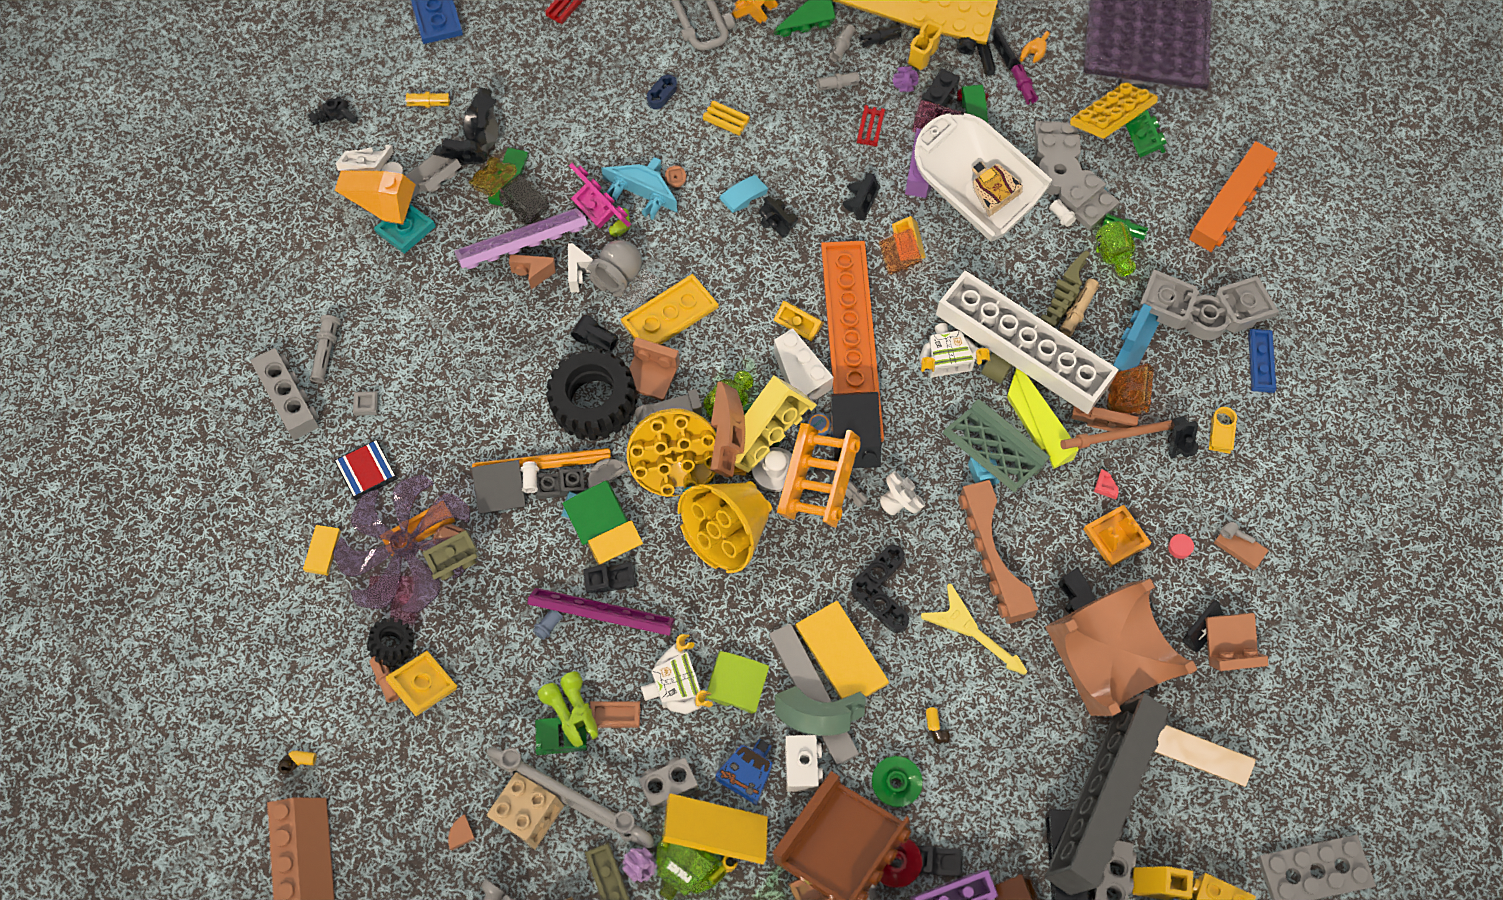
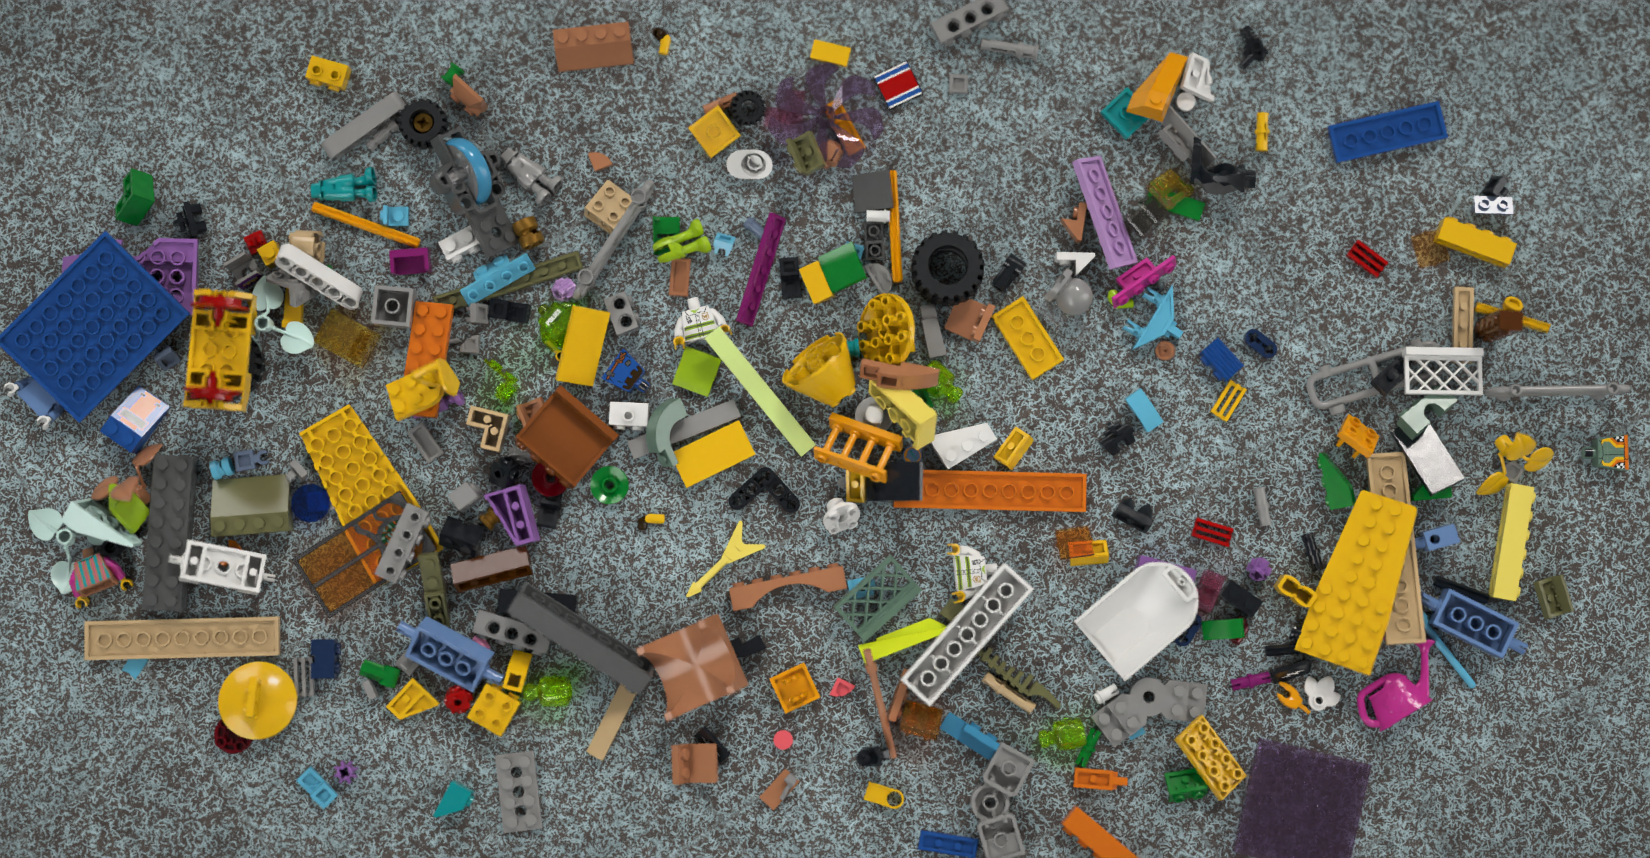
camera: 90 degrees right, 20 degrees up
(465, 631) = (749, 164): none -> white piece
(567, 658) = (723, 241): none -> medium azure tile
(682, 124) = (1221, 360): none -> blue brick
(756, 598) = (759, 391): none -> yellowish green tile
(842, 43) = (1306, 515): light grey pin -> none
(865, 481) = (856, 487): none -> yellow slope
(995, 187) = (1128, 631): torso -> none
(1026, 24) = (1323, 690): none -> white plate
(1157, 216) = (1097, 779): none -> orange hinge
(1180, 834) = (551, 691): none -> clear neon green piece

